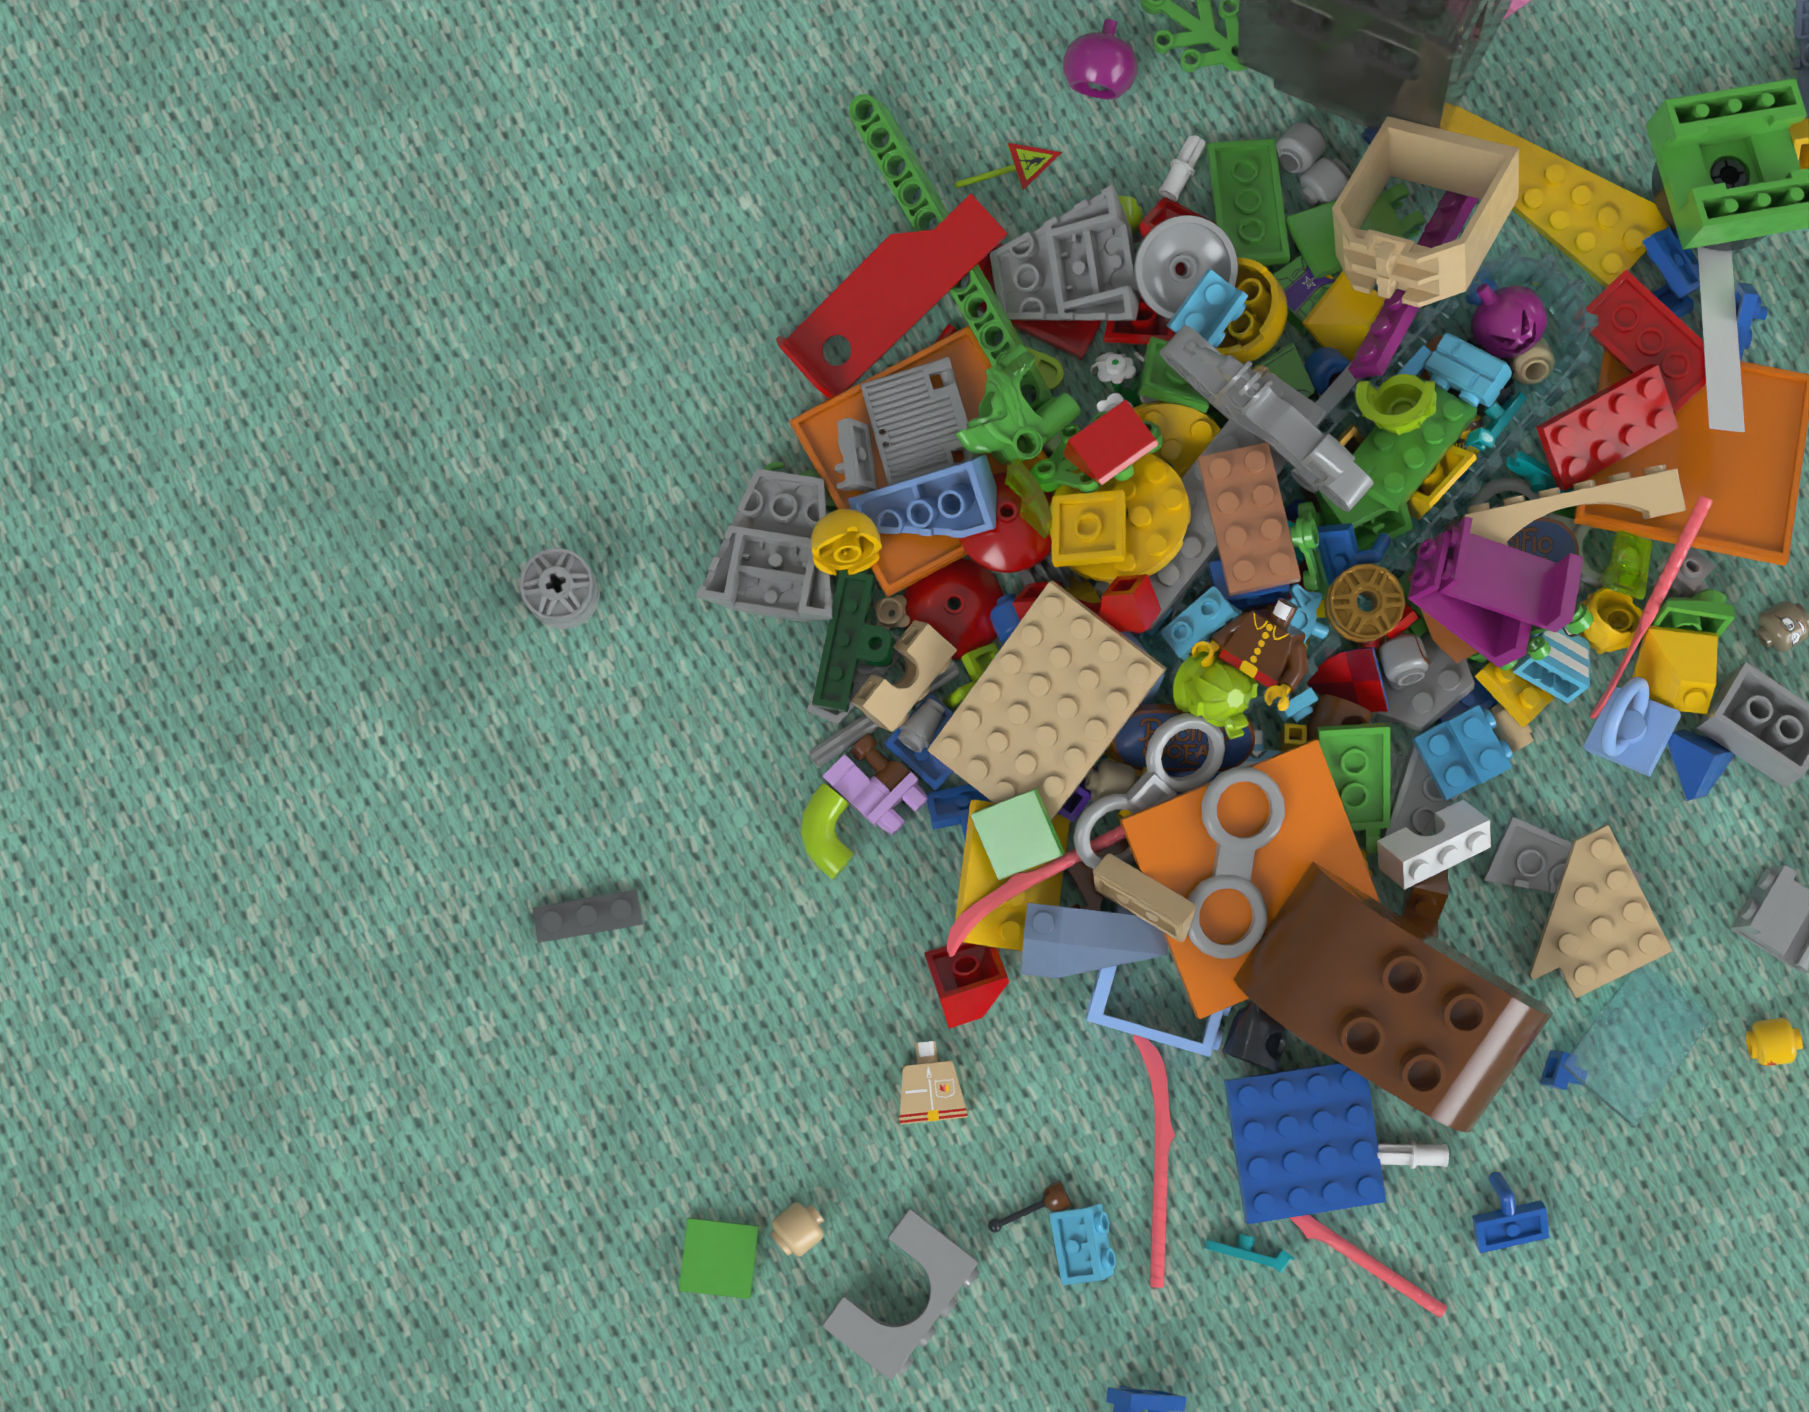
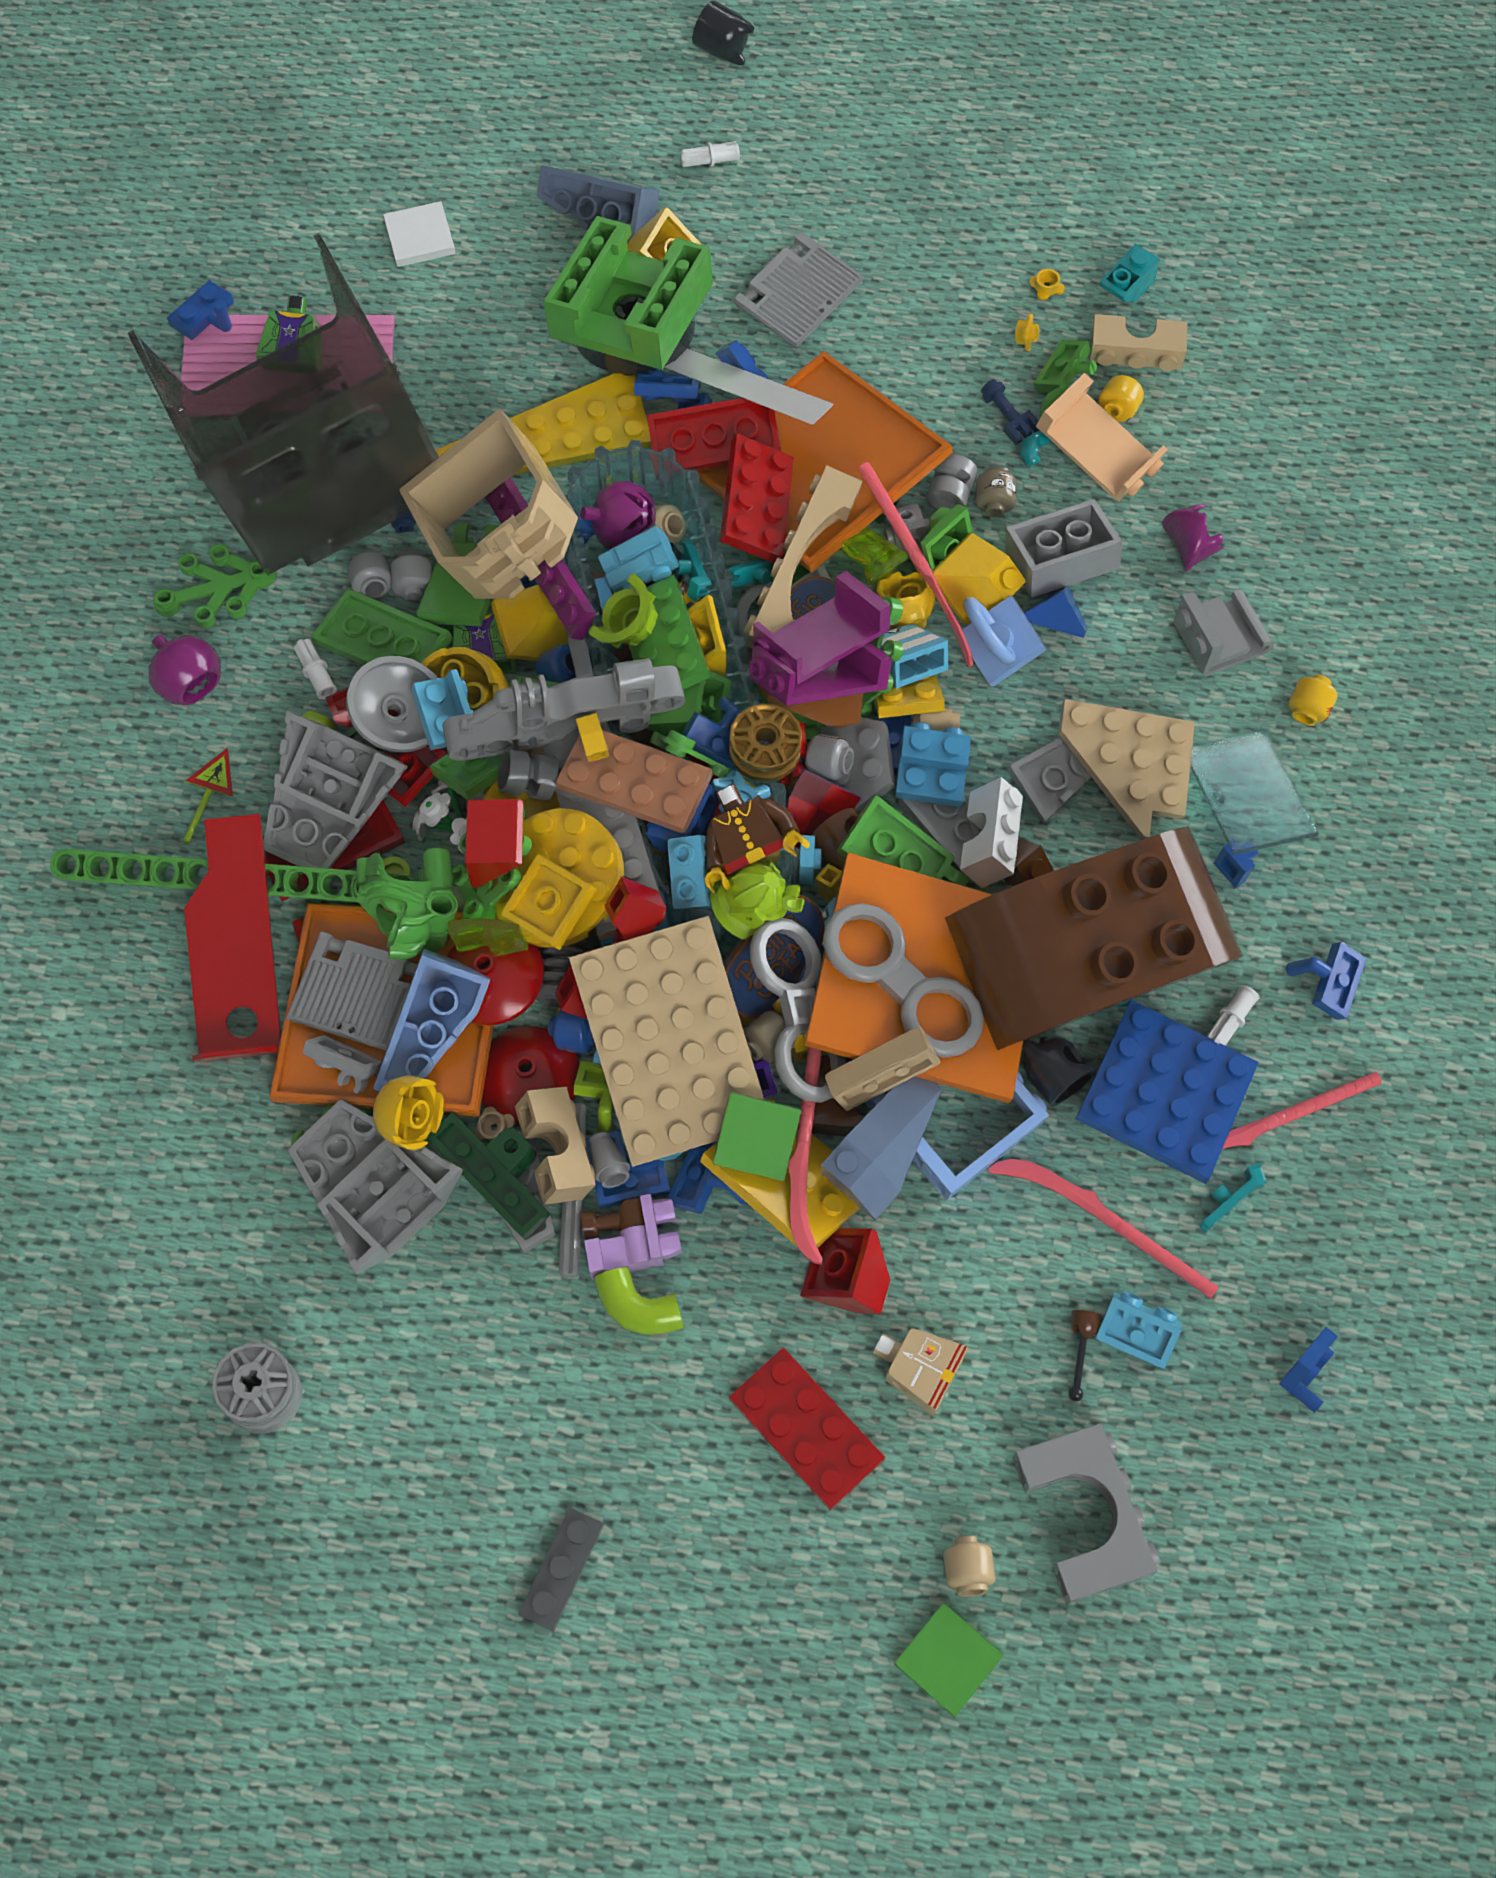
camera: 55 degrees left, 15 degrees down
(821, 1030) = (806, 1429): none -> red plate
(1190, 425) = (524, 774): none -> dark grey wheel
(1255, 460) = (592, 737): none -> yellow piece
(1761, 582) = (952, 482): none -> light grey wheel

